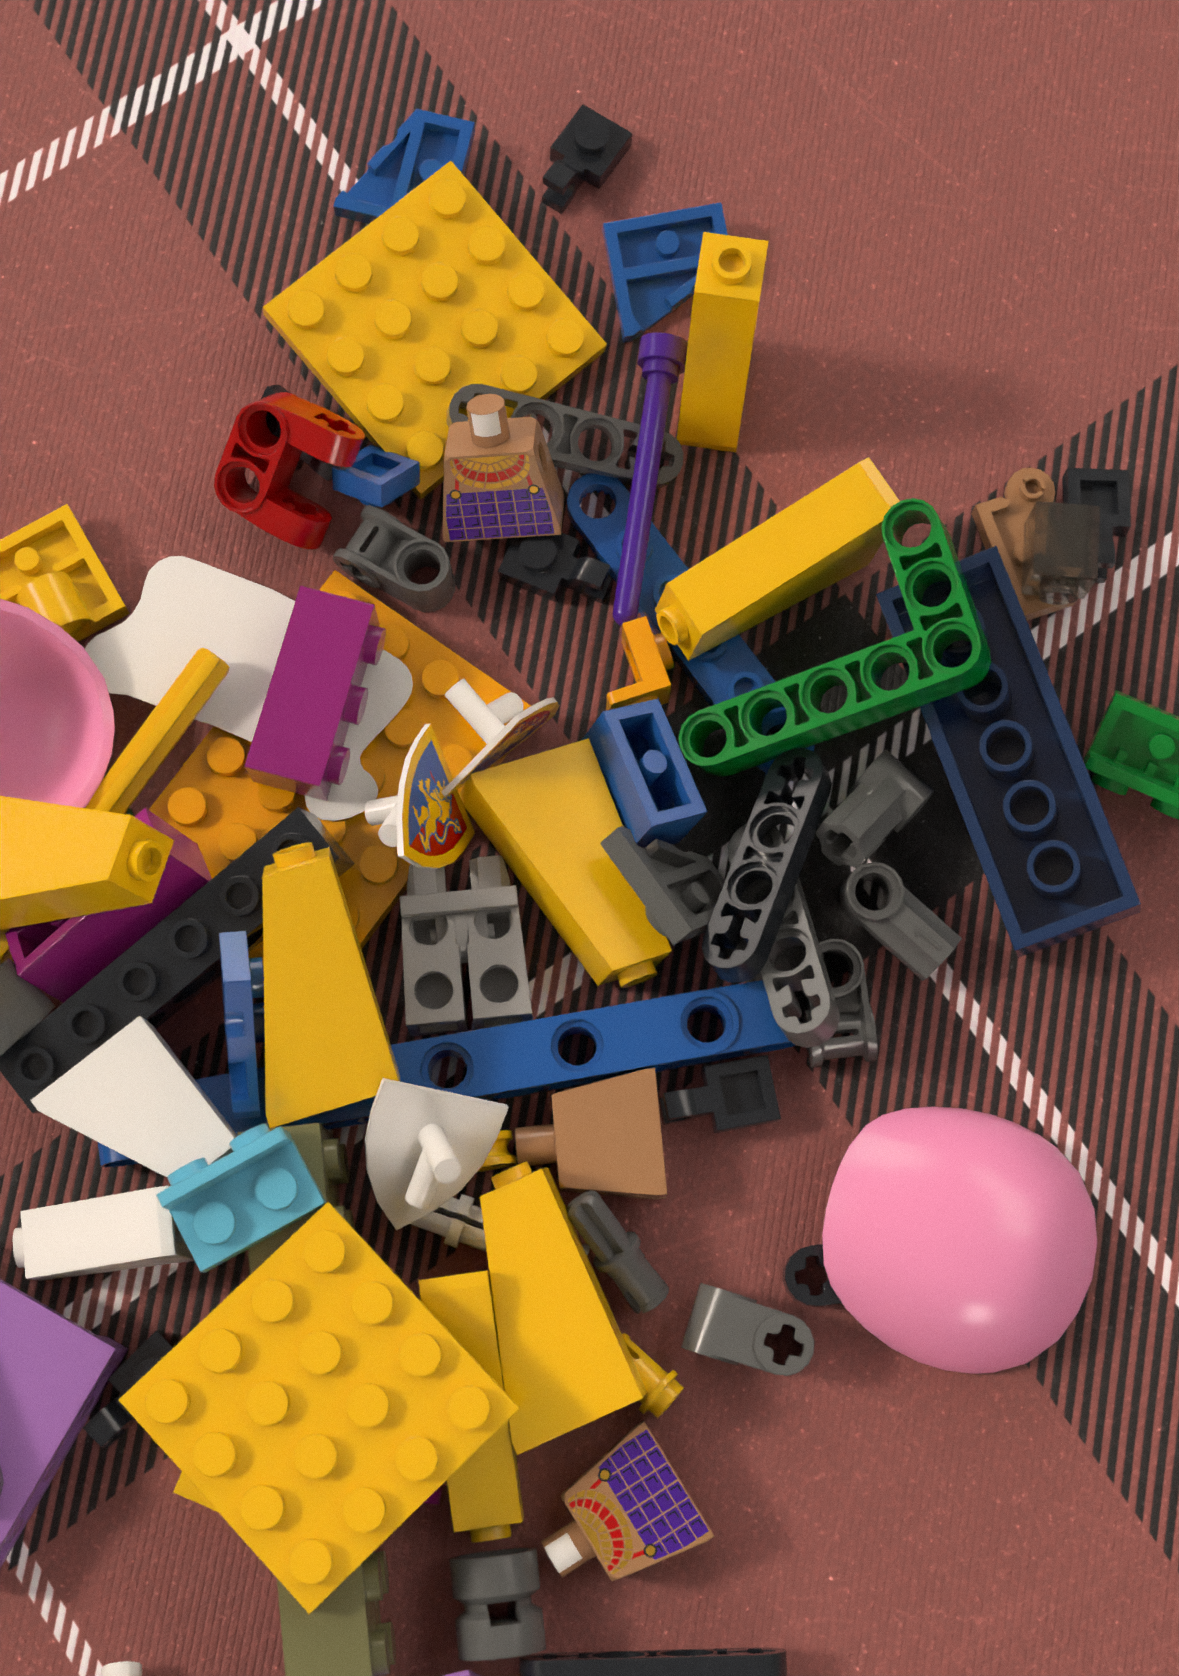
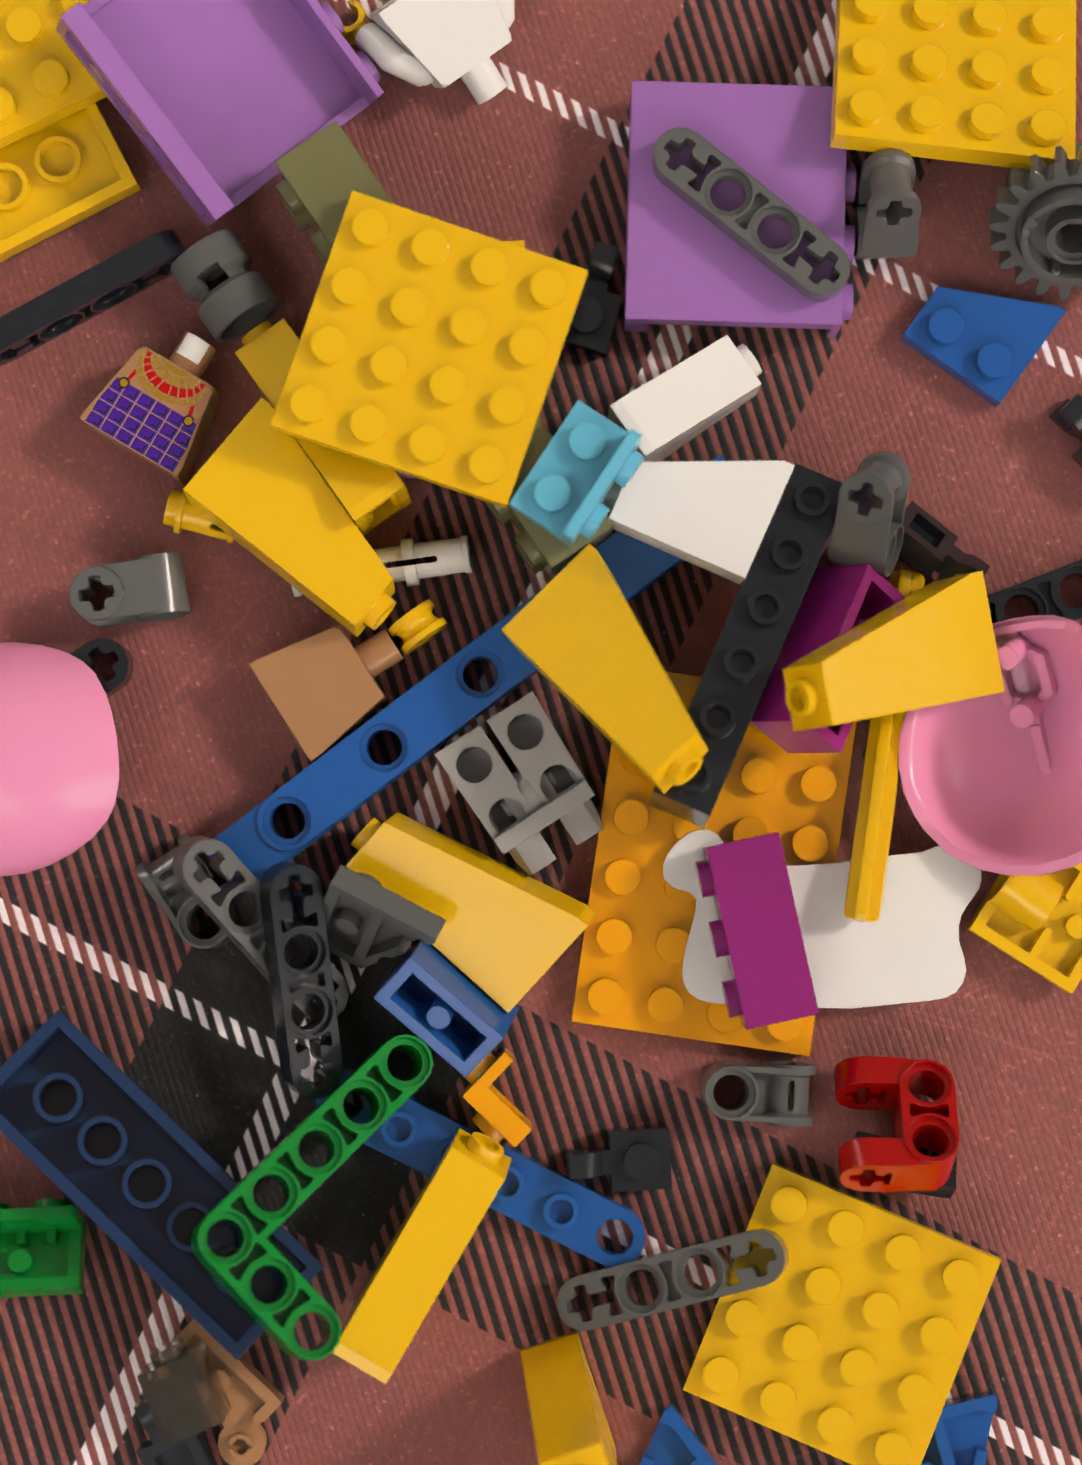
camera: 155 degrees right, 10 degrees up
(243, 1020) = (661, 619): blue wing -> none
(377, 477) = (813, 1157): blue plate -> none
(420, 819) = (605, 875): shield -> none
(425, 1146) = (460, 598): white shield -> none
(489, 723) = (599, 981): white shield -> none
(499, 477) = (705, 1207): torso -> none
(617, 1252) = (267, 600): dark grey axle -> none
(661, 360) = (620, 1391): dark purple piece -> none
(733, 1094) = (239, 776): black plate -> none
(878, 803) = (235, 1086): dark grey piece -> none
(903, 923) = (171, 993): dark grey piece -> none

